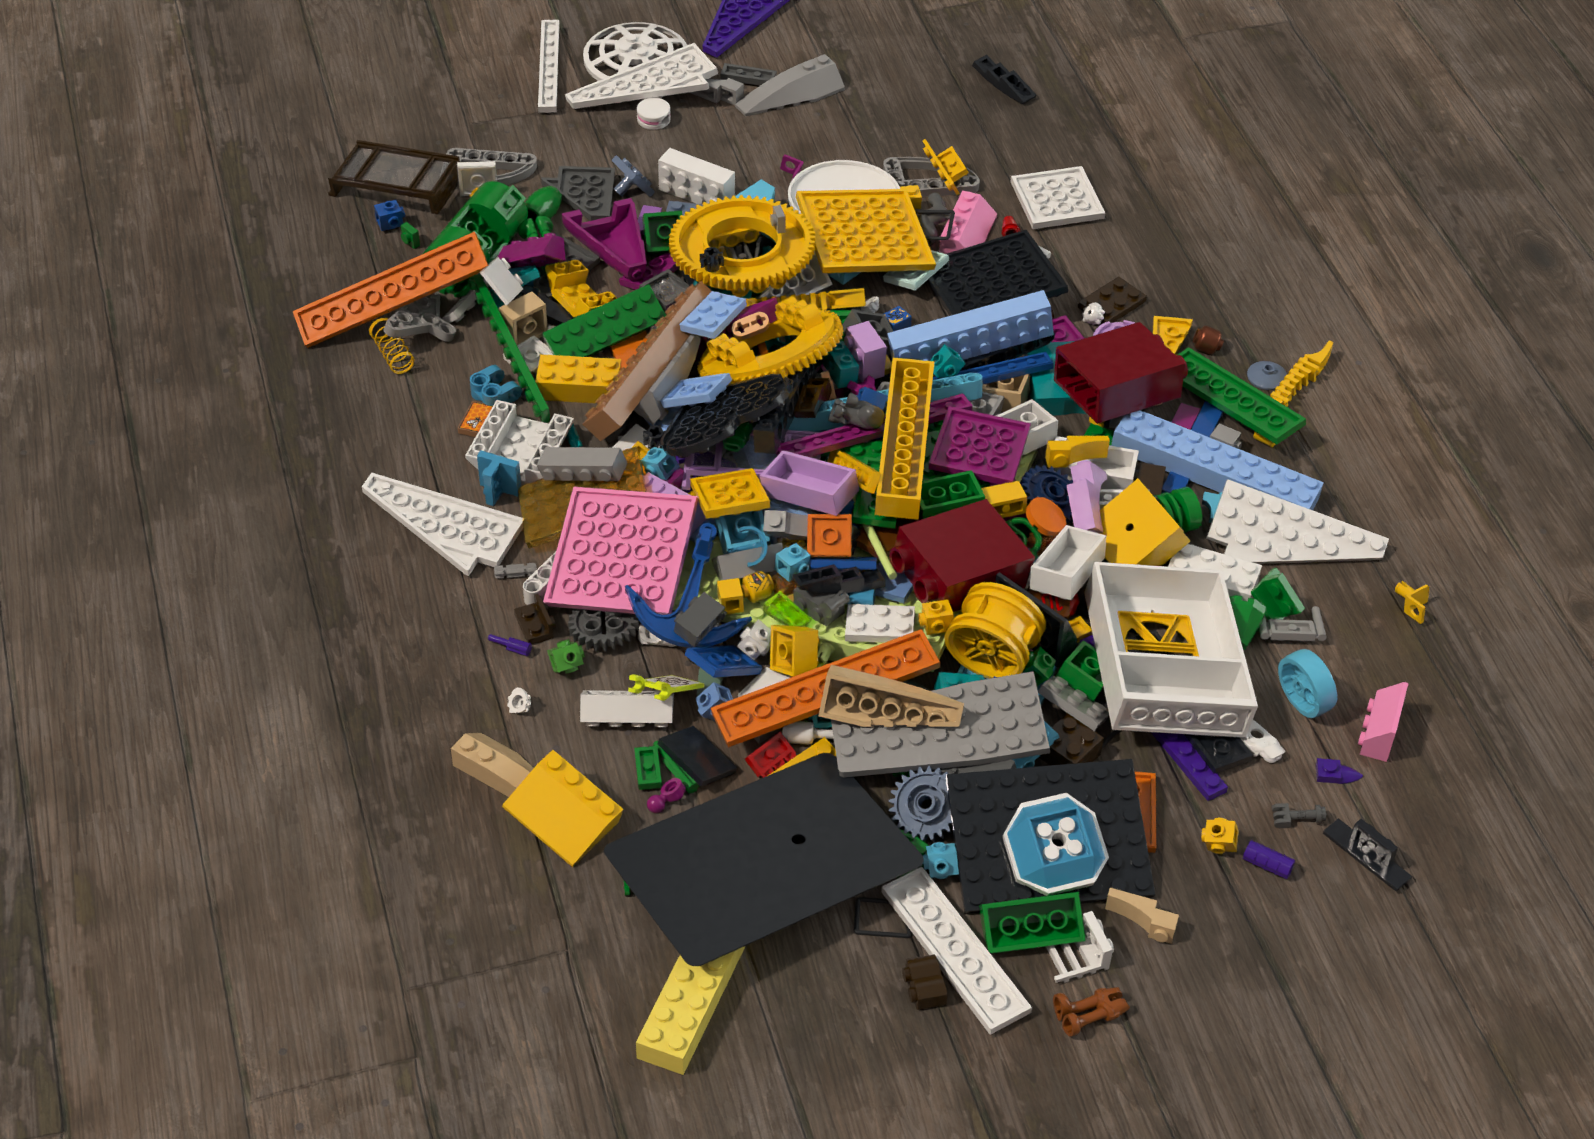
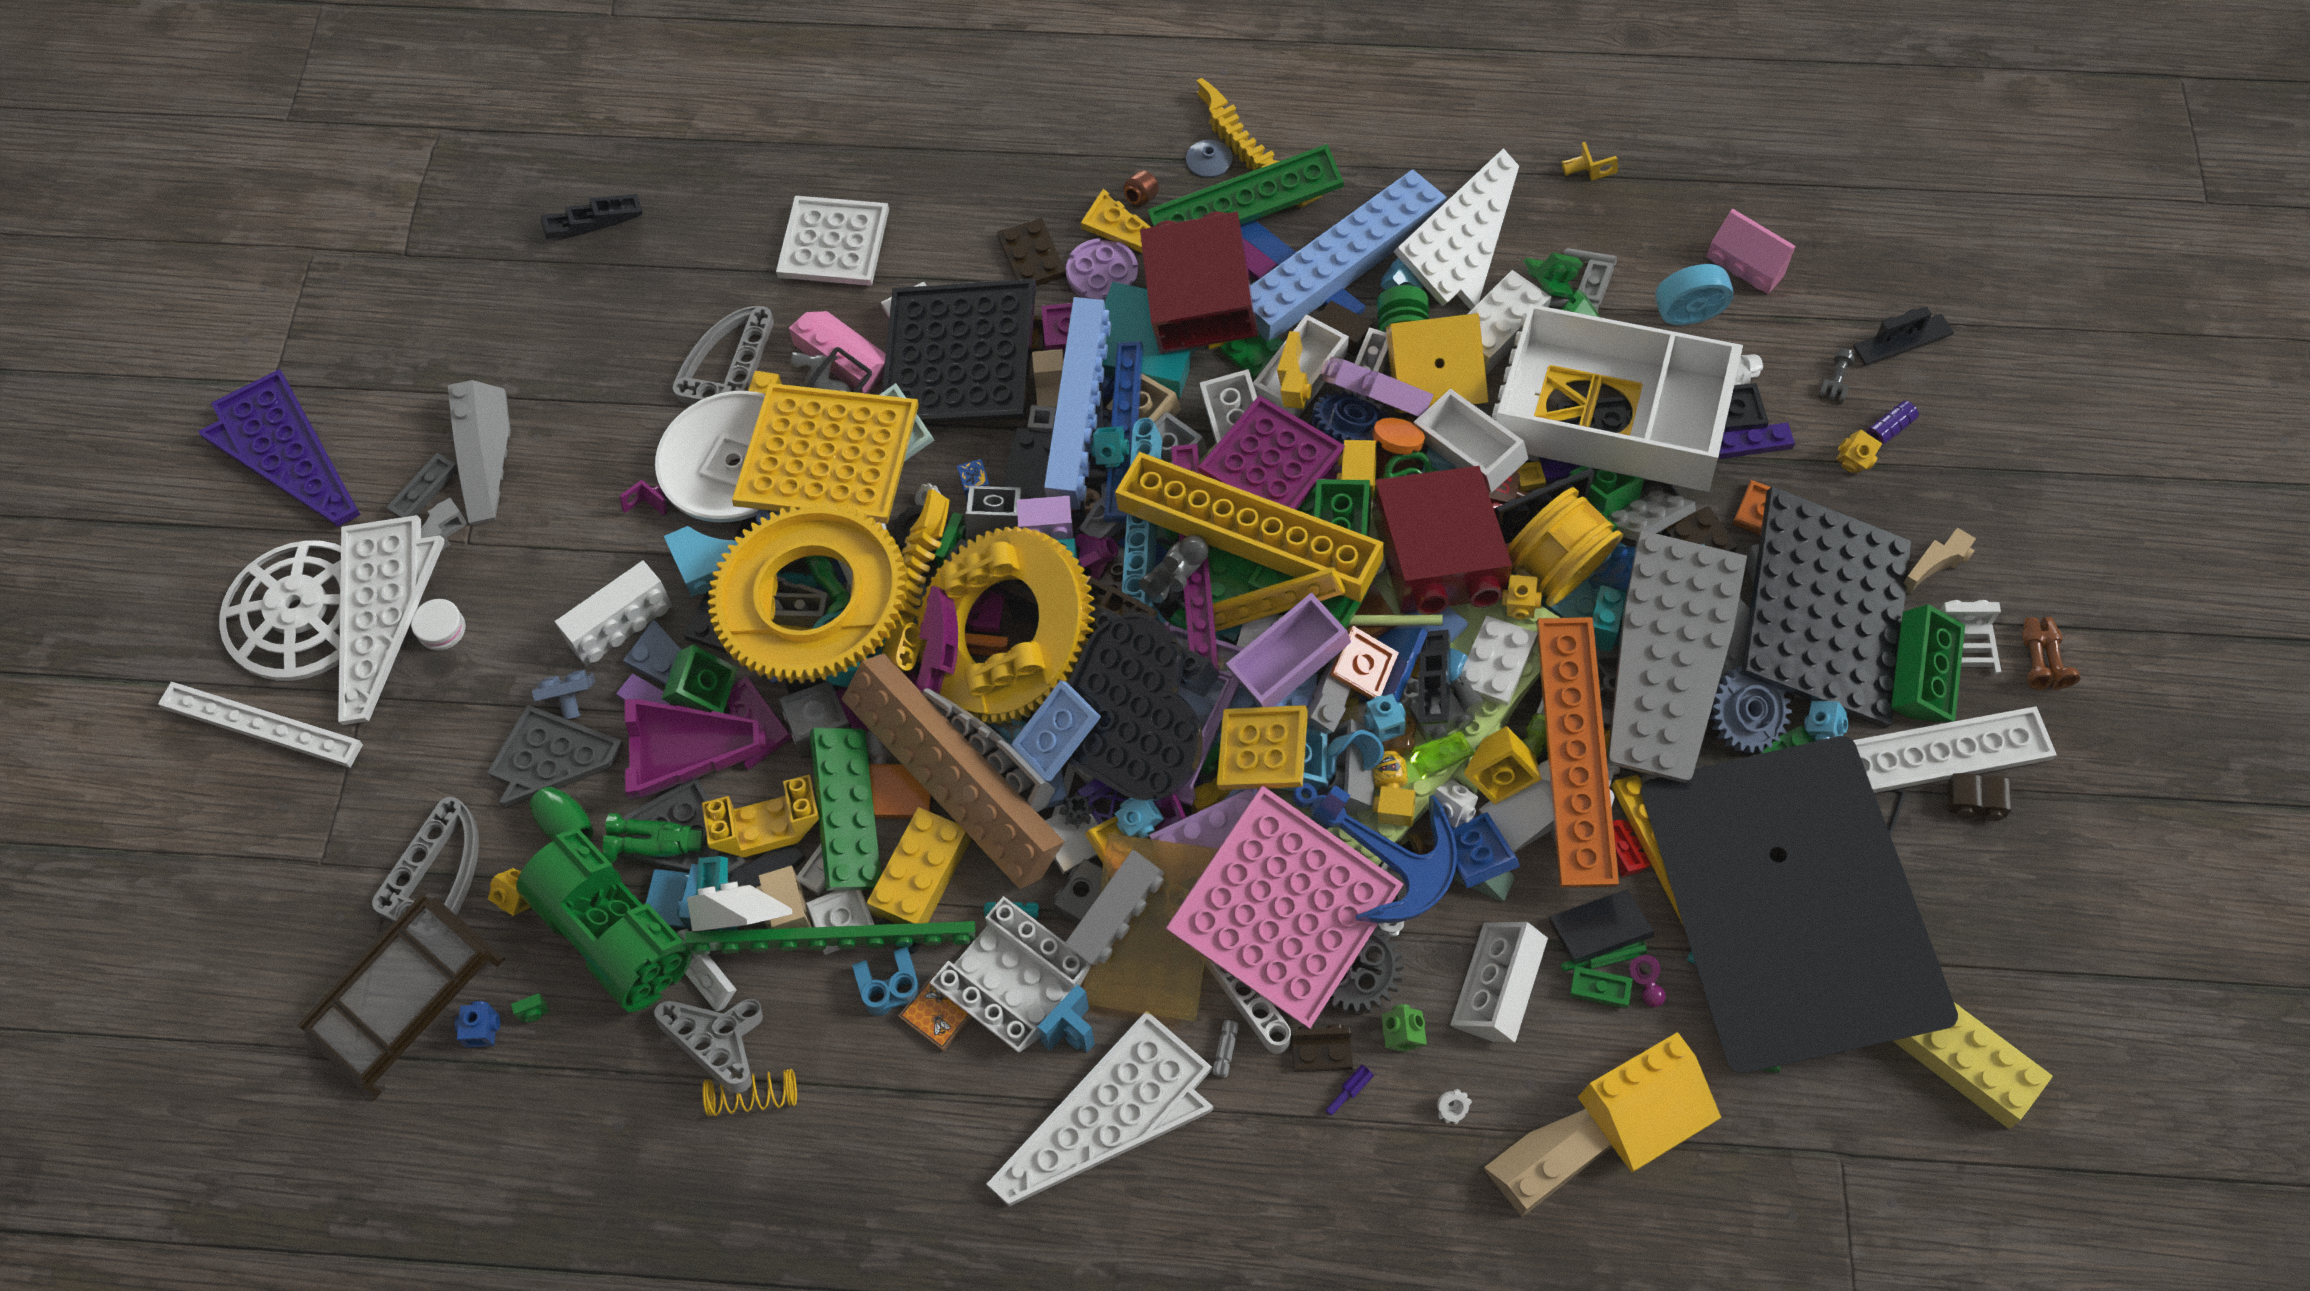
camera: 65 degrees left, 15 degrees up
(390, 289) = (671, 1062): orange plate -> none
(474, 174) = (467, 884): white tile -> none
(535, 251) = (679, 855): magenta slope -> none
(666, 684) = (1494, 921): neon yellow flag -> none
(699, 618) = (1432, 849): dark grey hinge -> none
(711, 259) = (847, 633): black gear -> none
(711, 697) = (1531, 881): medium blue brick -> none
(713, 315) = (928, 667): light blue plate -> none
(750, 326) = (967, 632): light nougat beam -> none
(778, 219) = (802, 532): light grey plate -> none
(873, 397) = (1155, 545): blue brick -> none
(877, 700) = (1622, 708): tan wedge -> none
(949, 165) = (730, 325): yellow bracket -> none
(1009, 226) = (863, 306): red cone -> none
(1047, 866) = (1859, 604): dark azure piece -> none
(1096, 315) = (1043, 274): white animal -> none
(1227, 435) = (1301, 232): light grey brick -> none
(1333, 772) = (1788, 324): dark purple plate -> none

